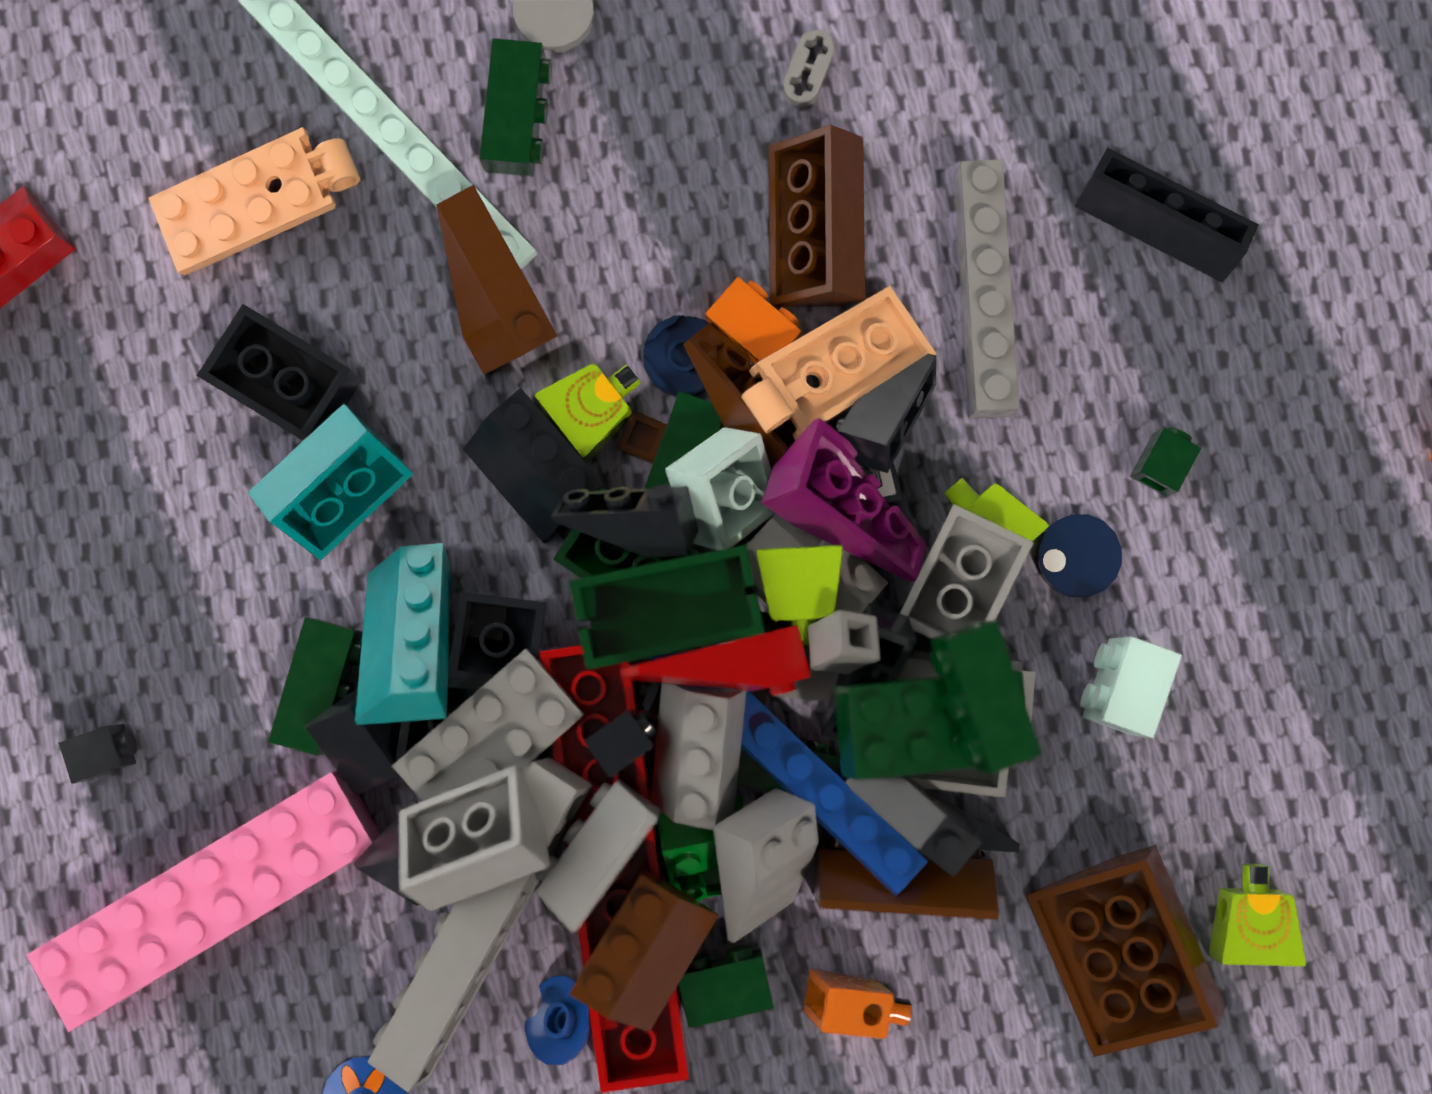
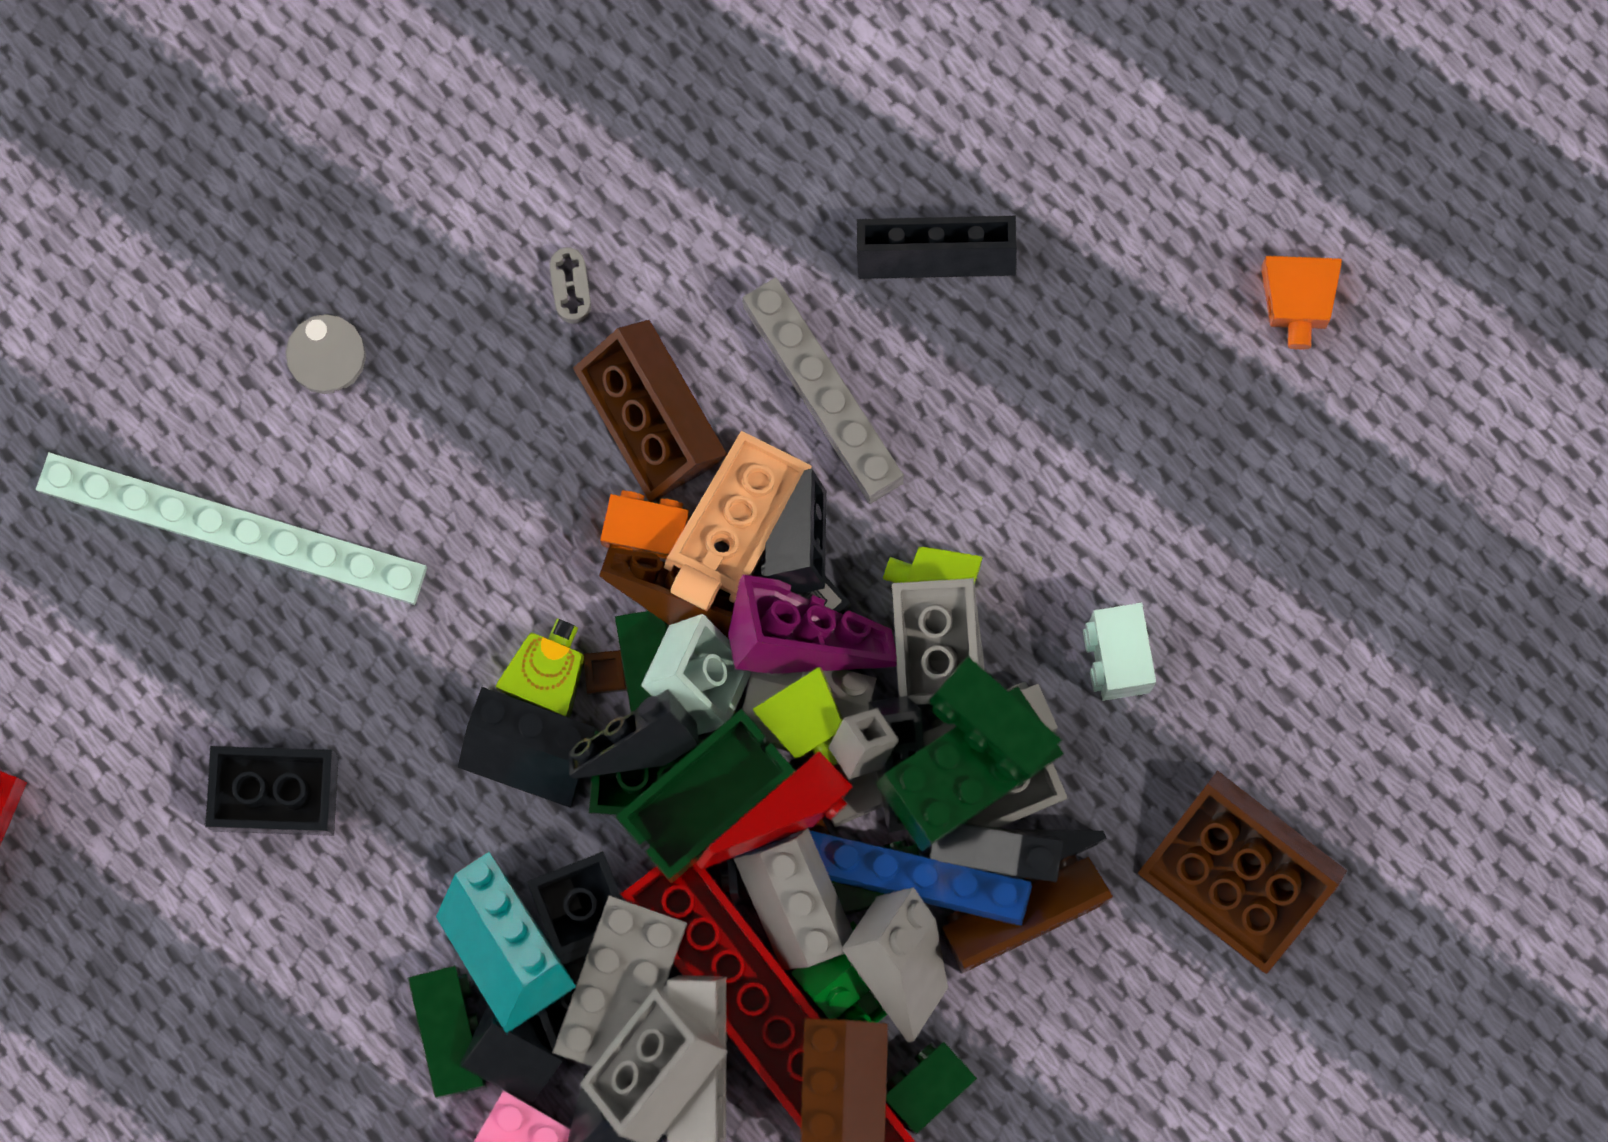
camera: 25 degrees left, 5 degrees down
(233, 204) = (149, 670): light nougat hinge -> none
(330, 483) = (368, 852): teal brick -> none
(492, 297) = (414, 624): reddish brown wedge -> none
(515, 107) = (341, 455): dark green brick -> none
(596, 852) = (758, 1022): light grey slope -> none
(621, 741) = (729, 925): black brick -> none
(667, 358) = (602, 600): dark blue tile -> none
(853, 1005) = (1030, 1042): orange torso -> none
(1079, 555) = (1024, 567): dark blue tile -> none
(1166, 461) = (1051, 449): dark green brick -> none
(1256, 924) = (1335, 787): lime torso -> none

